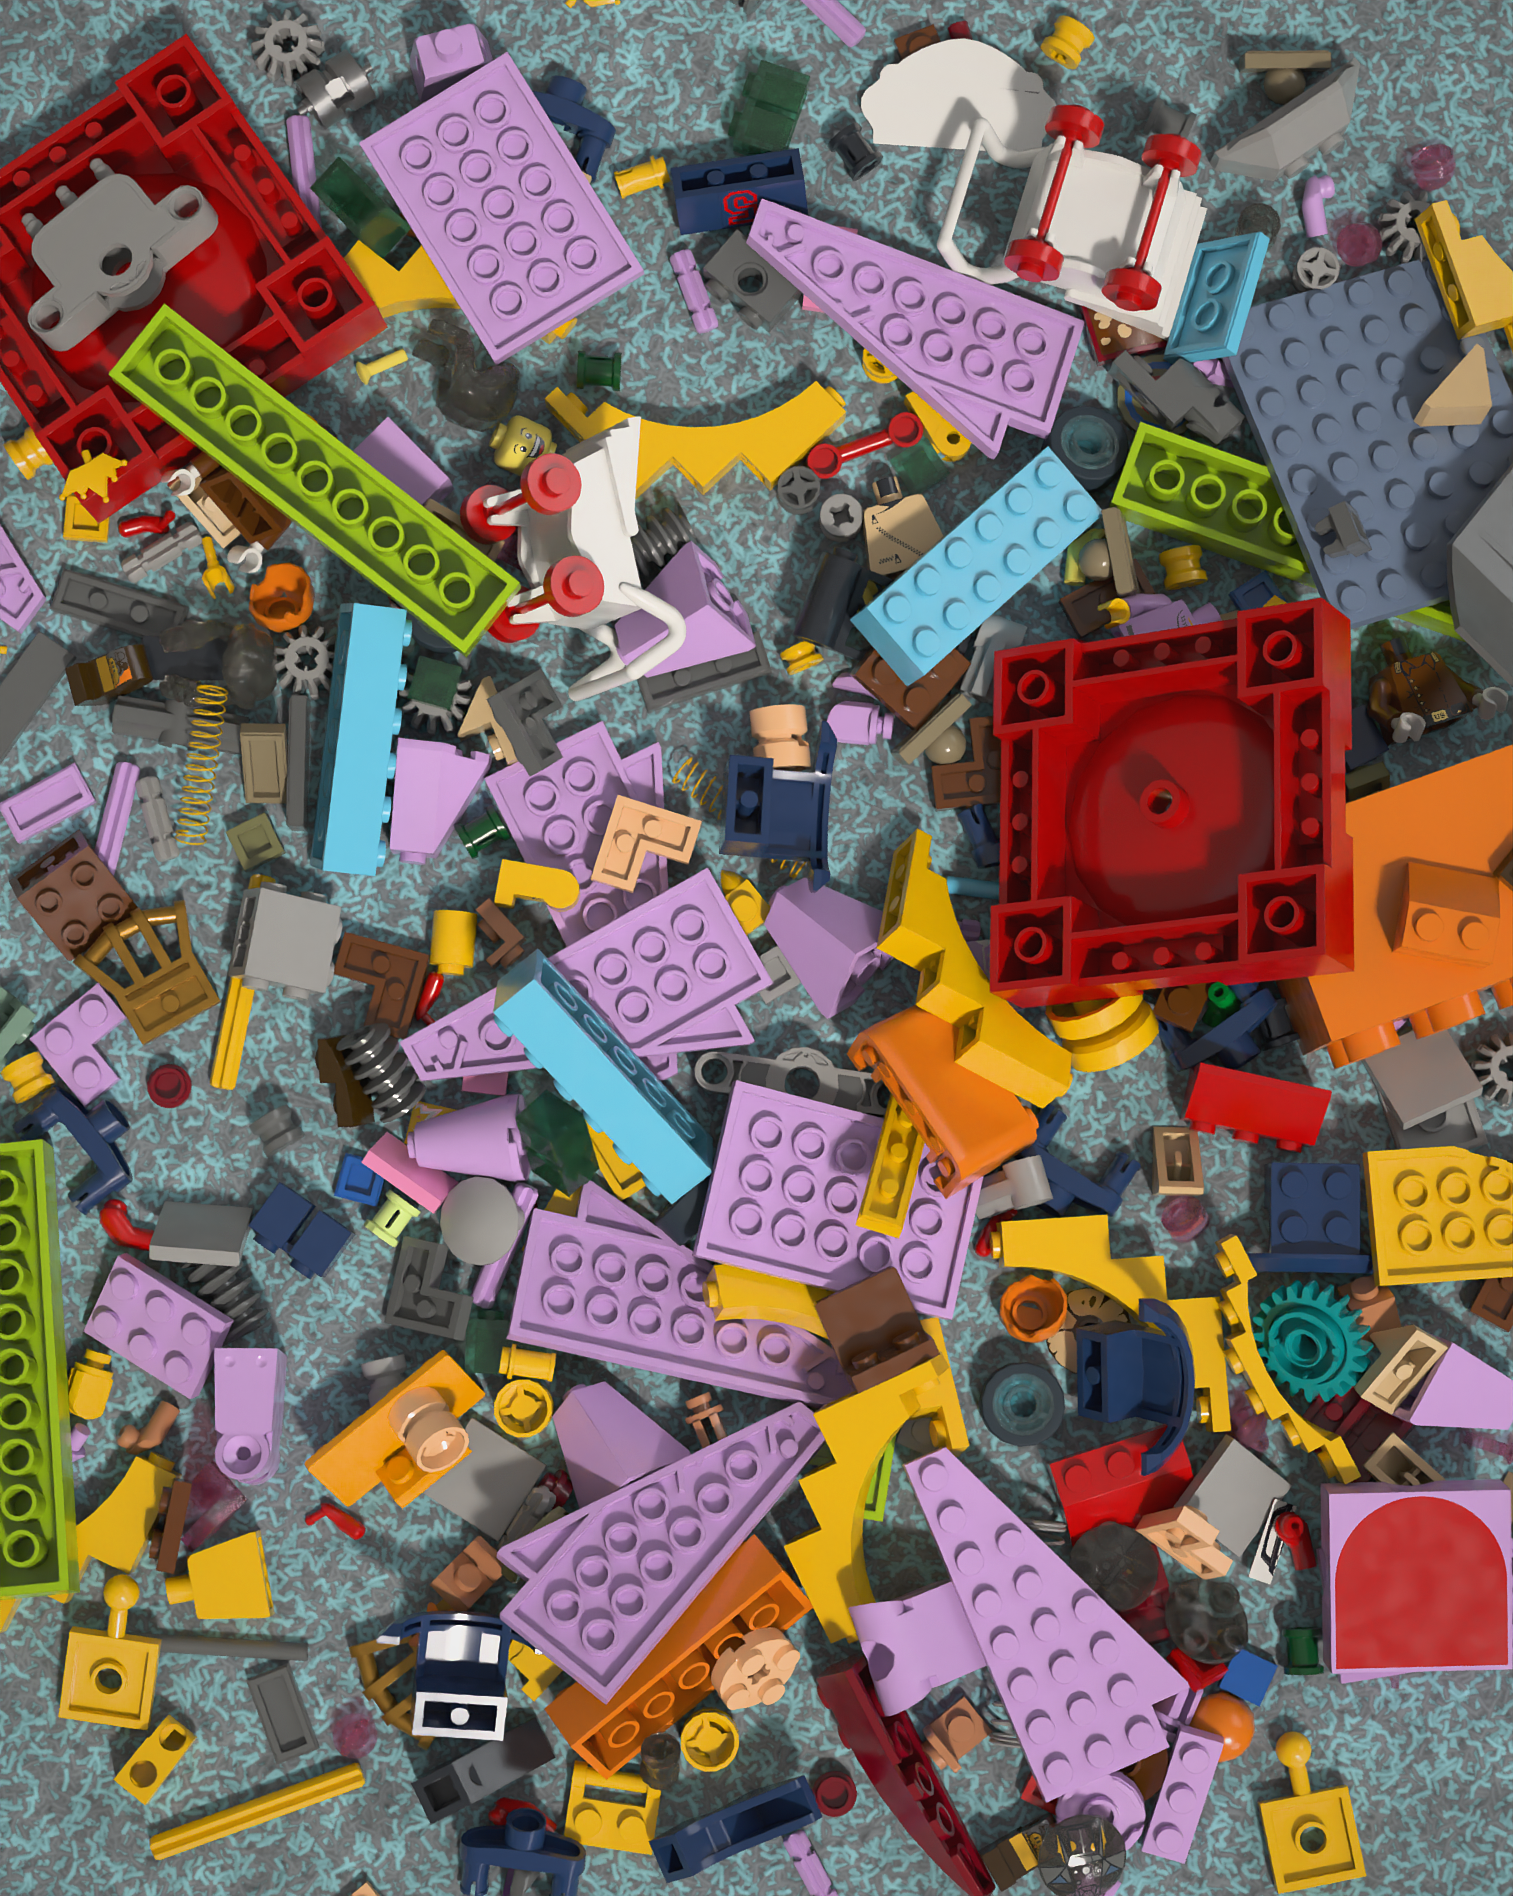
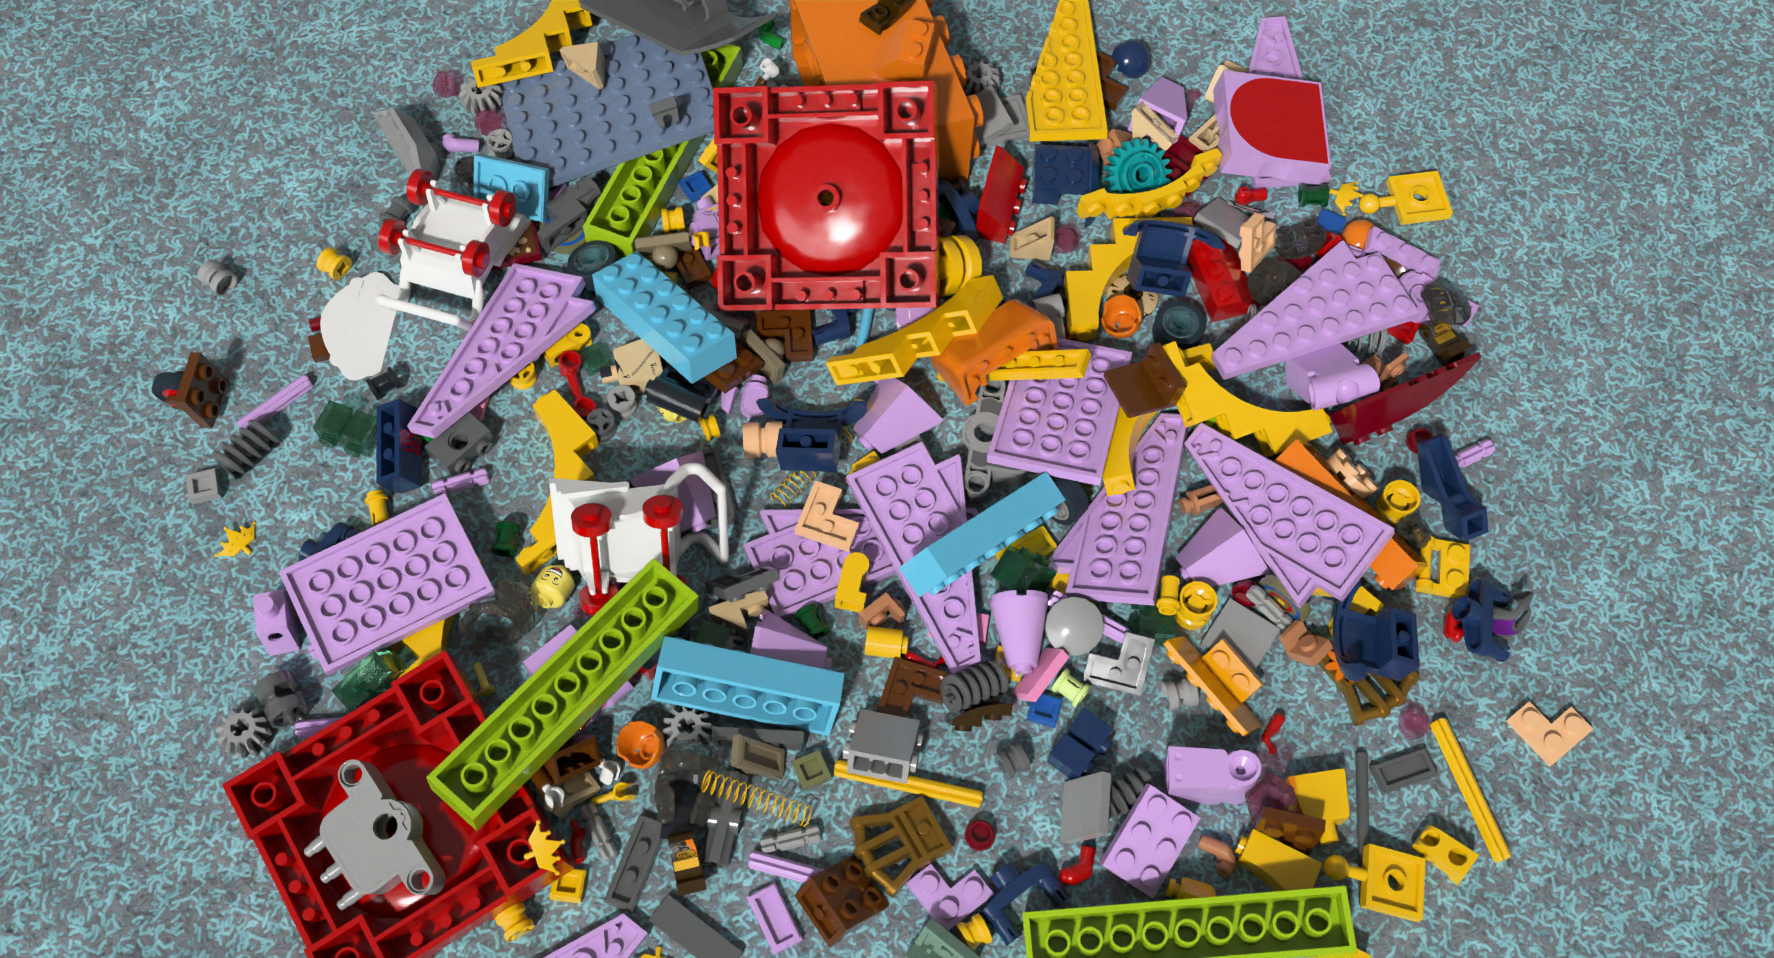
camera: 85 degrees left, 20 degrees down
(428, 1429) = (1219, 652): light nougat wheel -> none
(482, 1770) = (1438, 648): black slope -> none
(1284, 70) = (374, 153): dark tan tile -> none
(1314, 1711) = (1346, 194): none -> yellow piece

